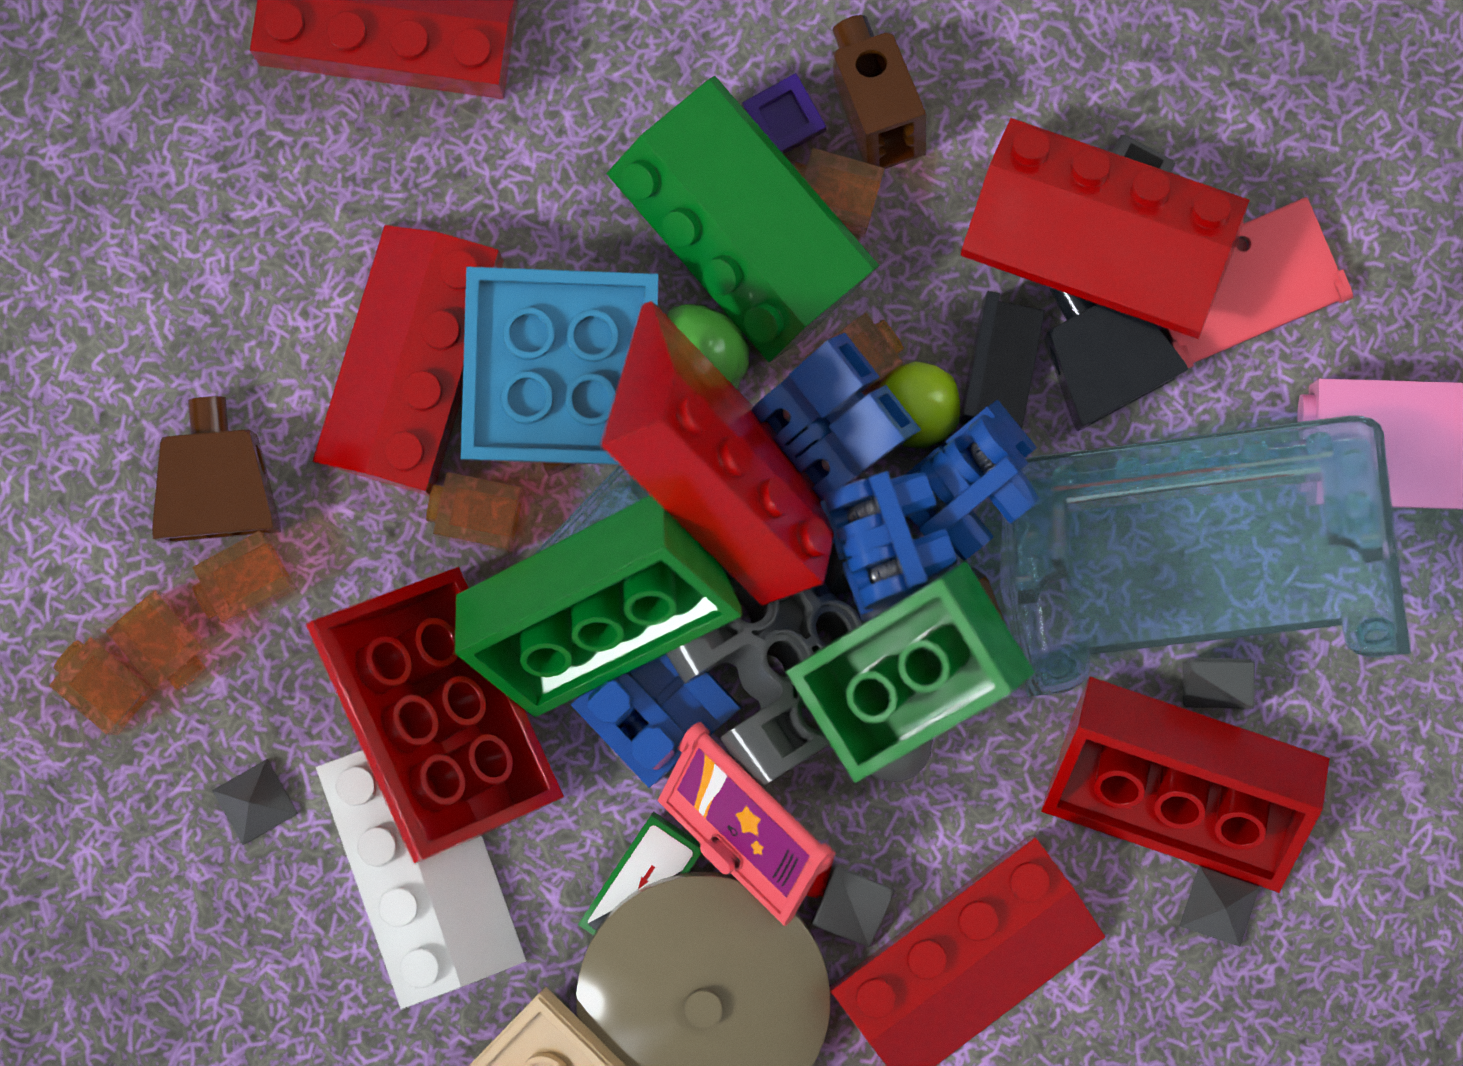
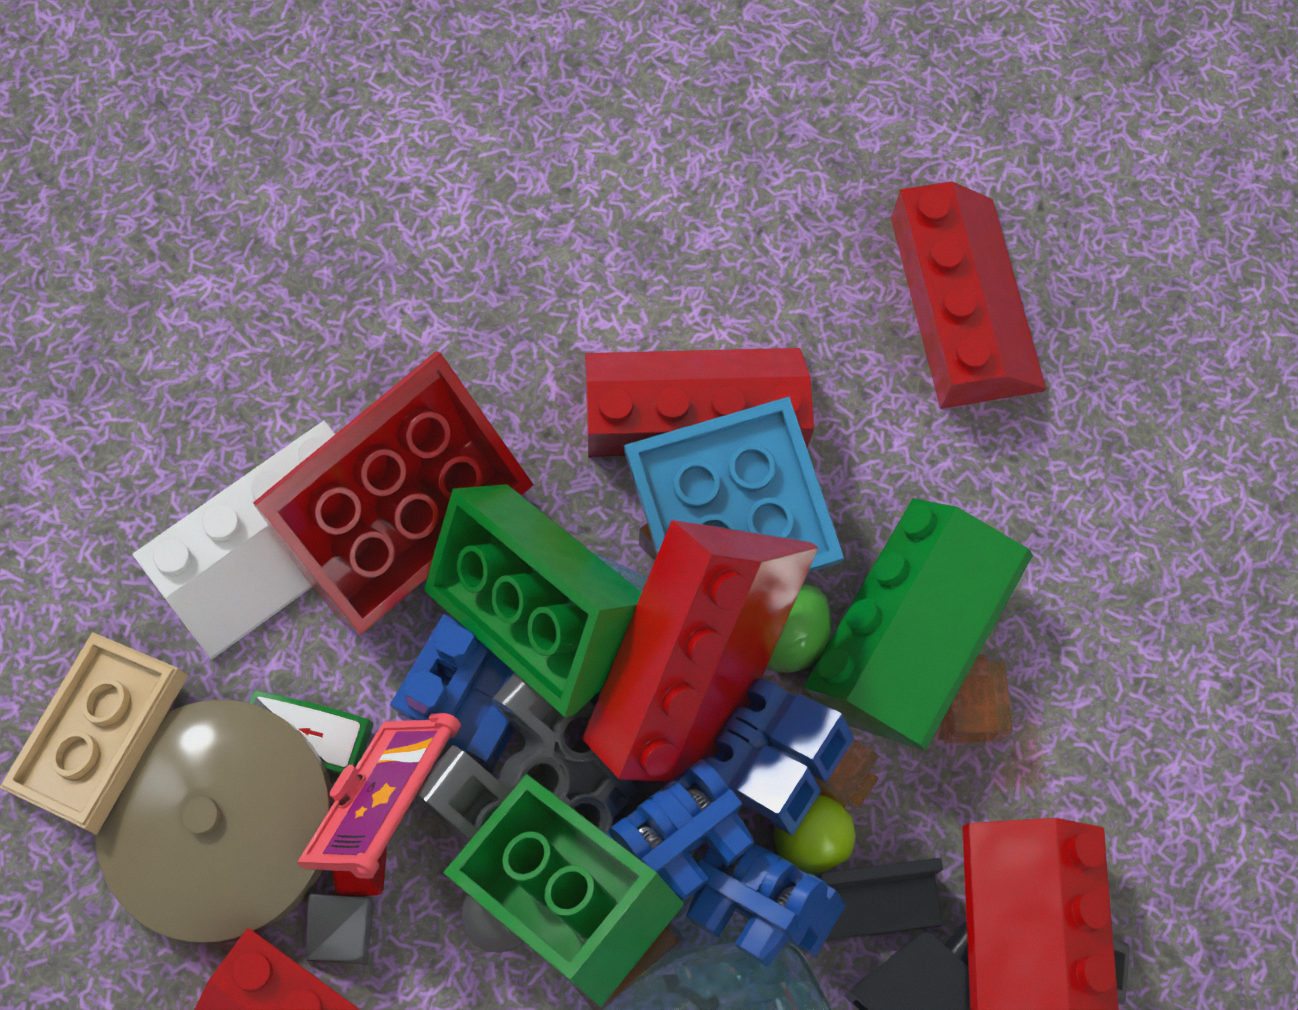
camera: 65 degrees right, 15 degrees down
(100, 684) = (345, 247): clear orange brick -> none
(160, 642) = (395, 279): clear orange brick -> none
(212, 480) = (541, 278): reddish brown torso -> none
(241, 579) = (468, 325): clear orange brick -> none
(255, 802) = (286, 397): dark grey slope -> none
(475, 511) = (586, 490): clear orange brick -> none
(786, 114) = (1021, 636): dark purple plate -> none
(878, 94) = (1072, 706): reddish brown torso -> none

